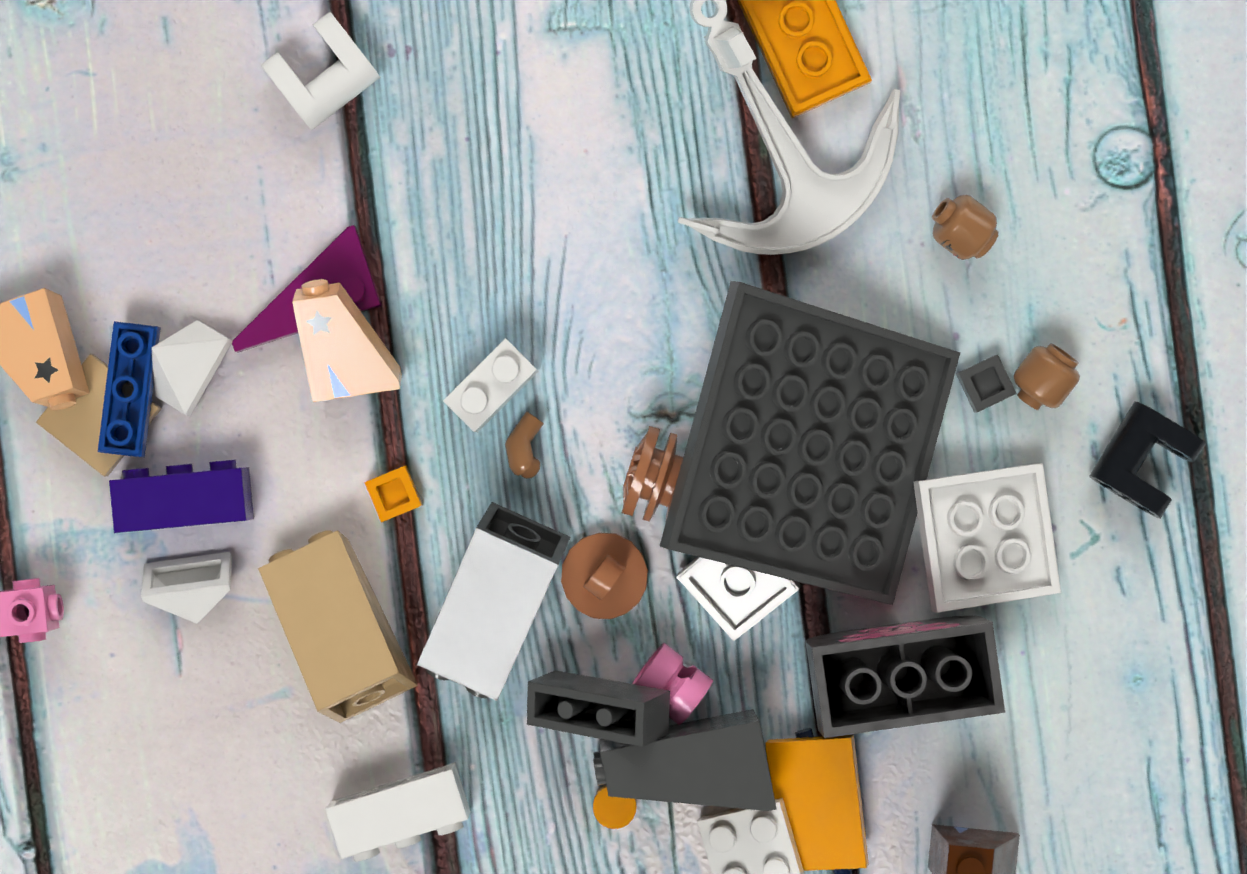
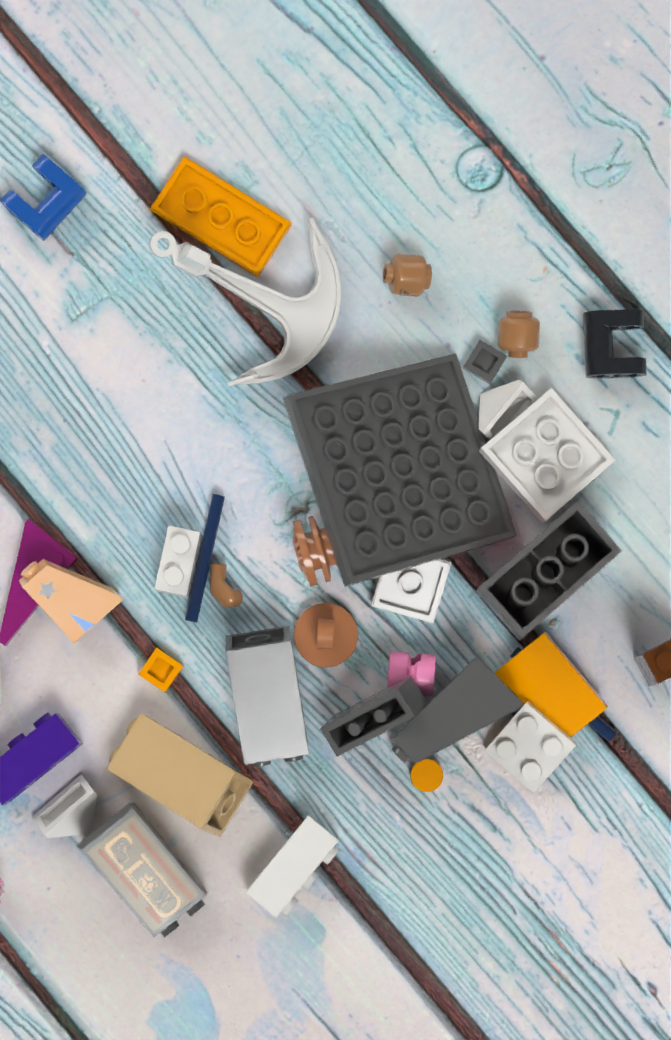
camera: 30 degrees left, 5 degrees down
(227, 708) = (143, 870): none -> slope
(524, 399) = (204, 558): none -> dark blue bar
(972, 448) = (502, 406): none -> white slope

